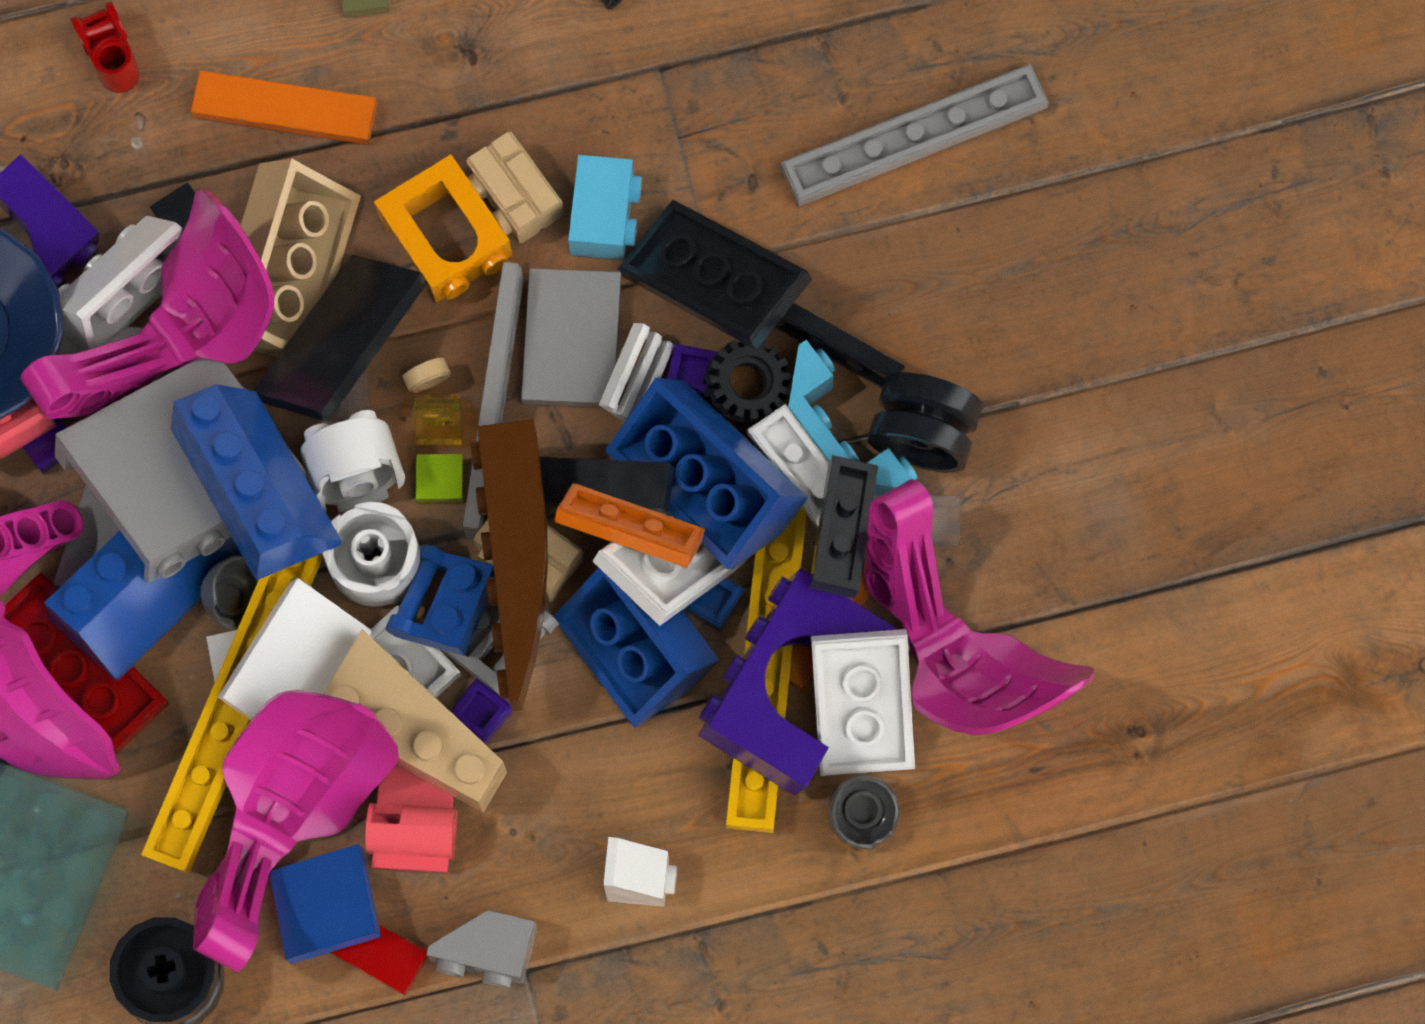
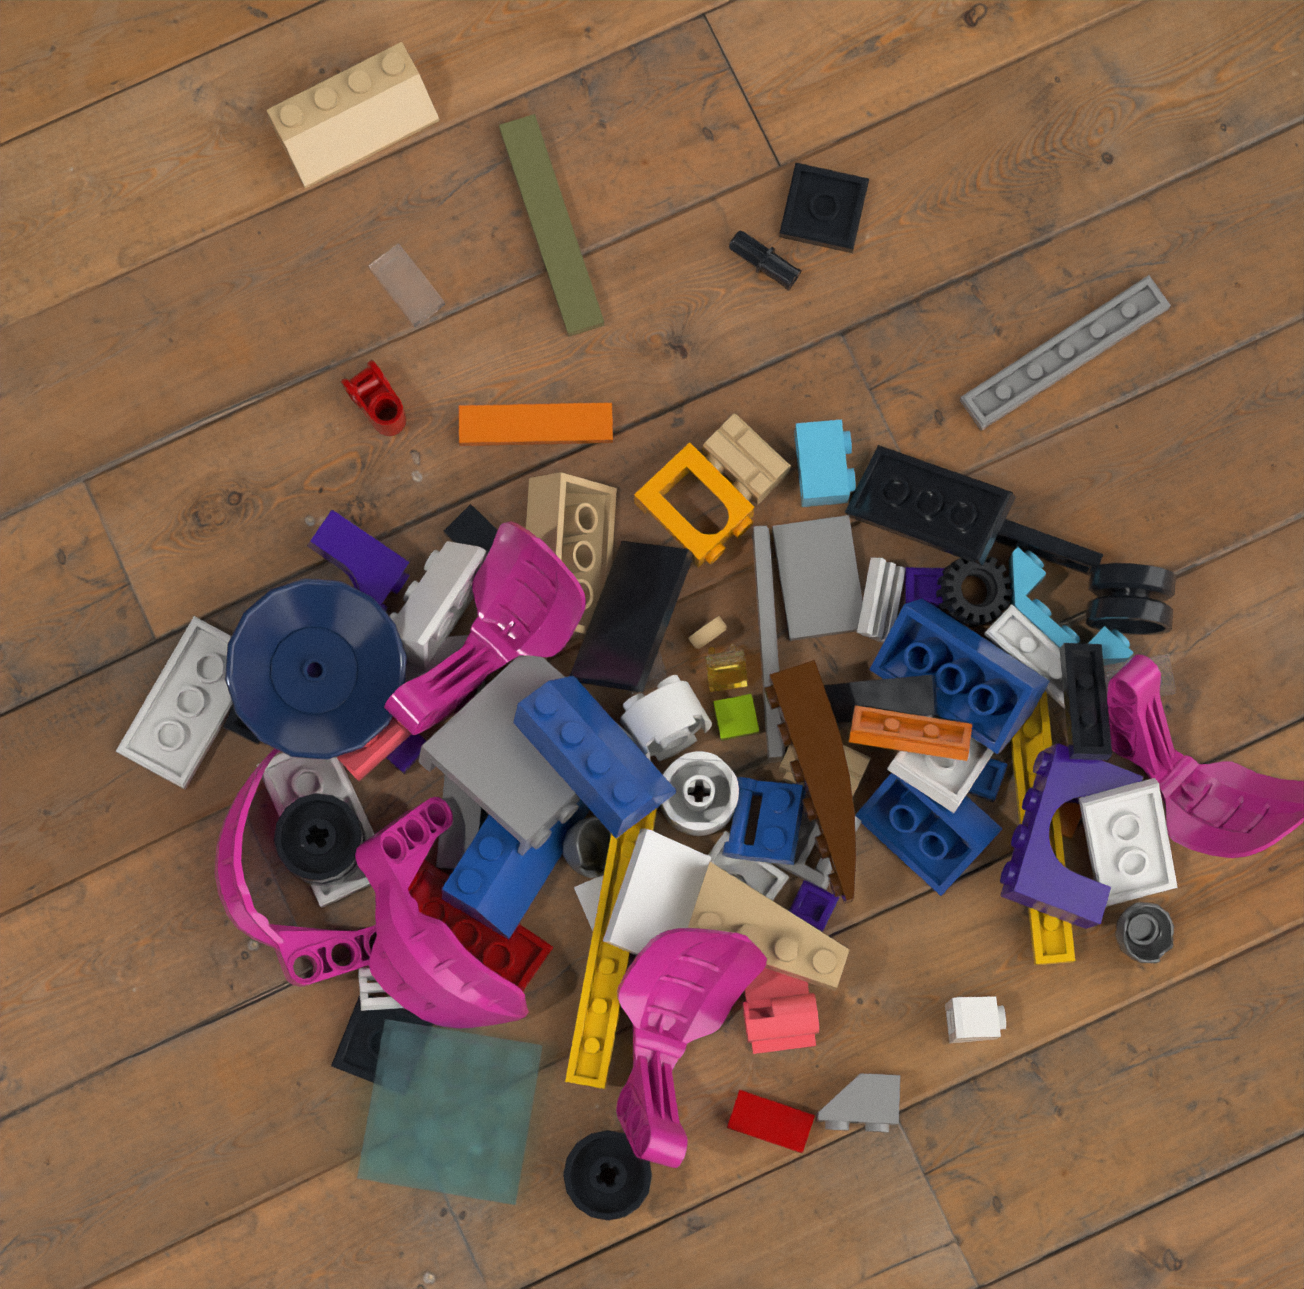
camera: 15 degrees left, 5 degrees up
(324, 904) = (722, 1092): blue tile -> none

